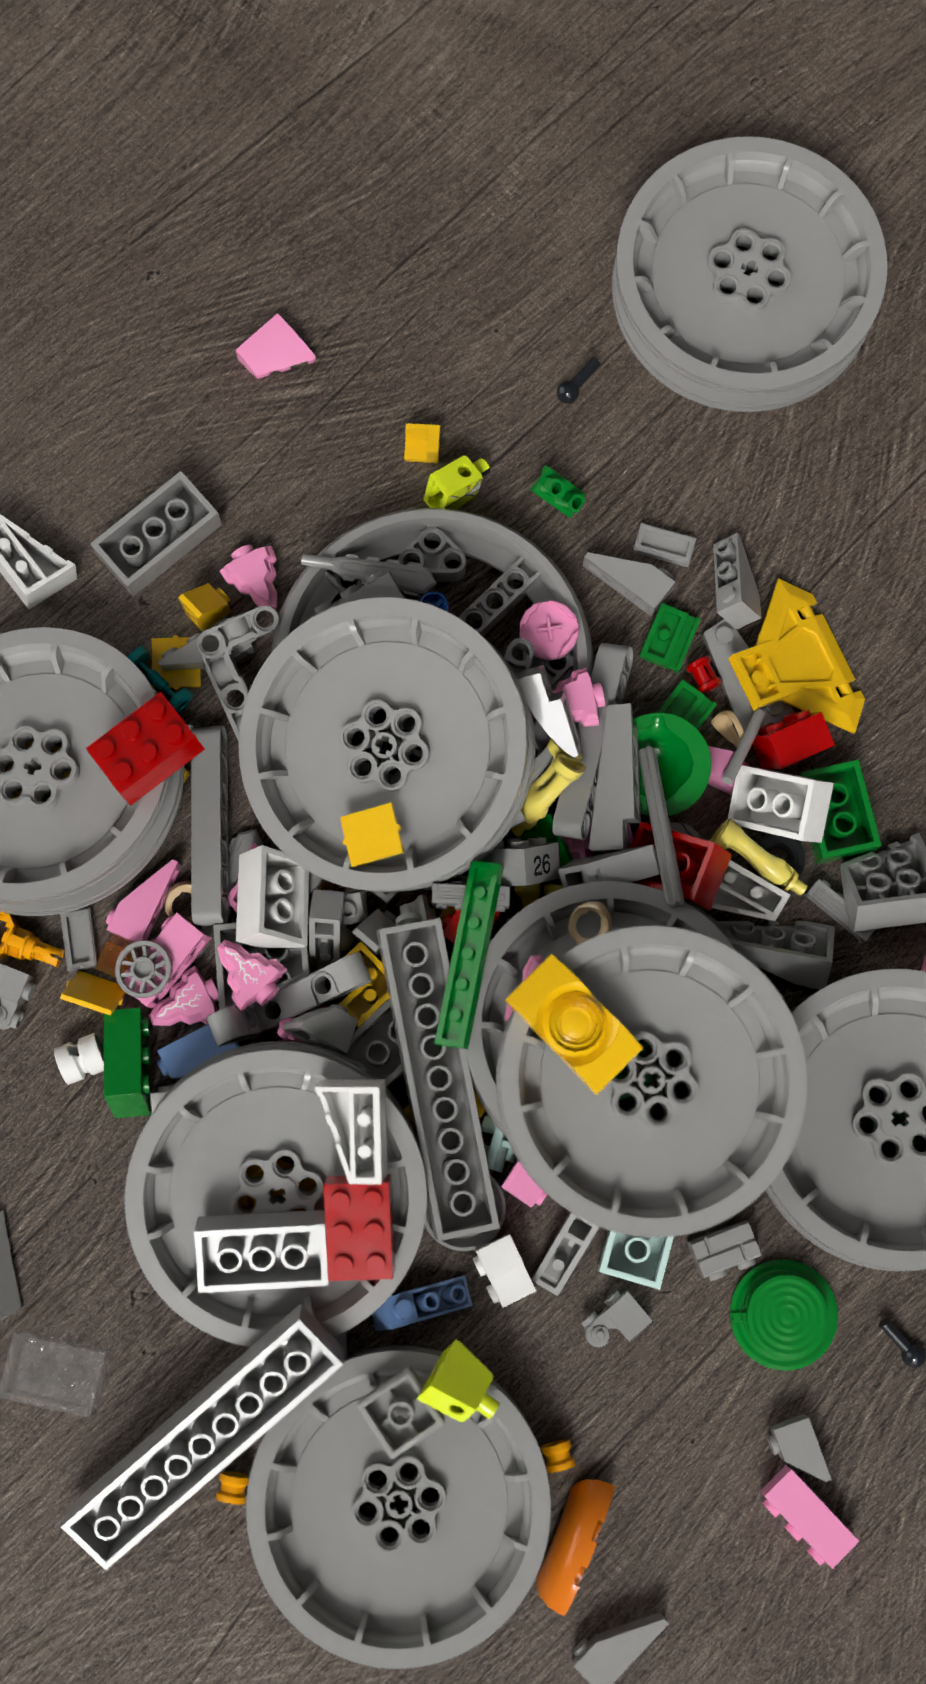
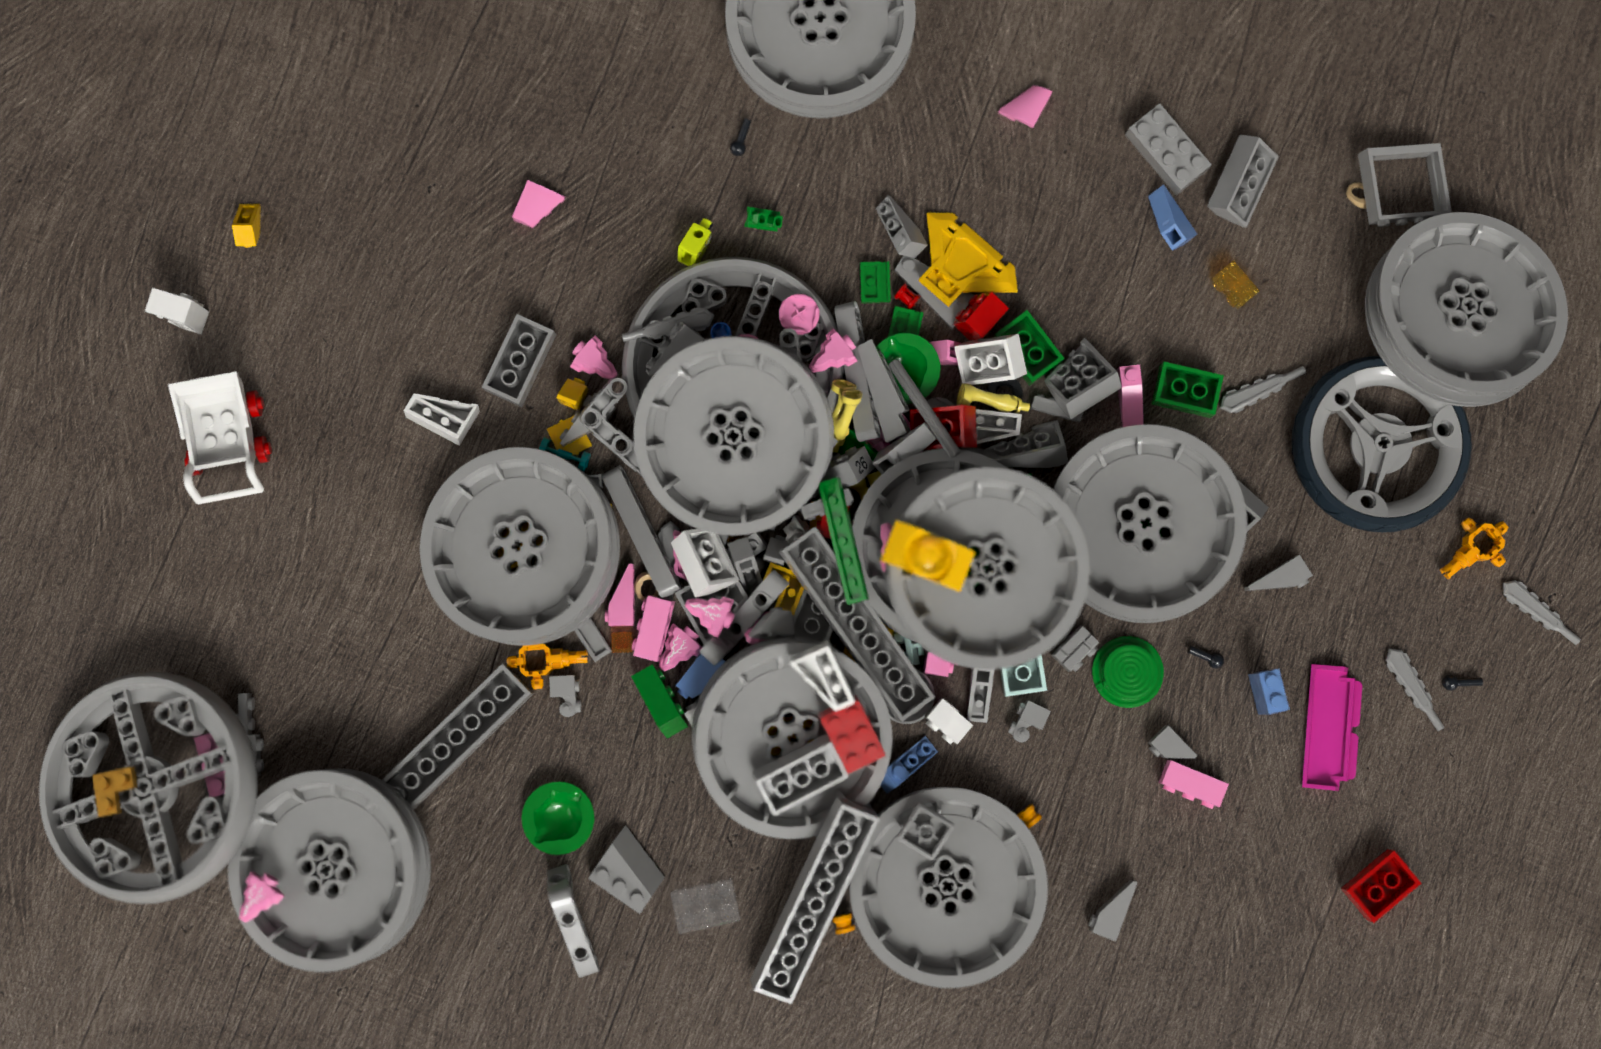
camera: 25 degrees left, 5 degrees up
(80, 1059) = (630, 711): white wheel -> none
(93, 993) = (619, 668): yellow piece -> none
(143, 969) = (644, 639): light grey wheel -> none
(145, 748) = (587, 504): red brick -> none
(372, 834) = (751, 495): yellow piece -> none
(422, 443) = (660, 224): yellow panel -> none
(459, 1385) = (953, 799): neon yellow torso -> none
(550, 709) = (824, 366): slope -> none
(573, 1543) = (1061, 862): orange brick -> none
(597, 907) = (907, 477): tan piece -> none
(634, 580) = (839, 255): light grey slope -> none
(664, 545) = (844, 222): light grey tile -> none
(724, 723) = (938, 323): tan piece -> none
(743, 747) = (952, 352): light grey bar -> none

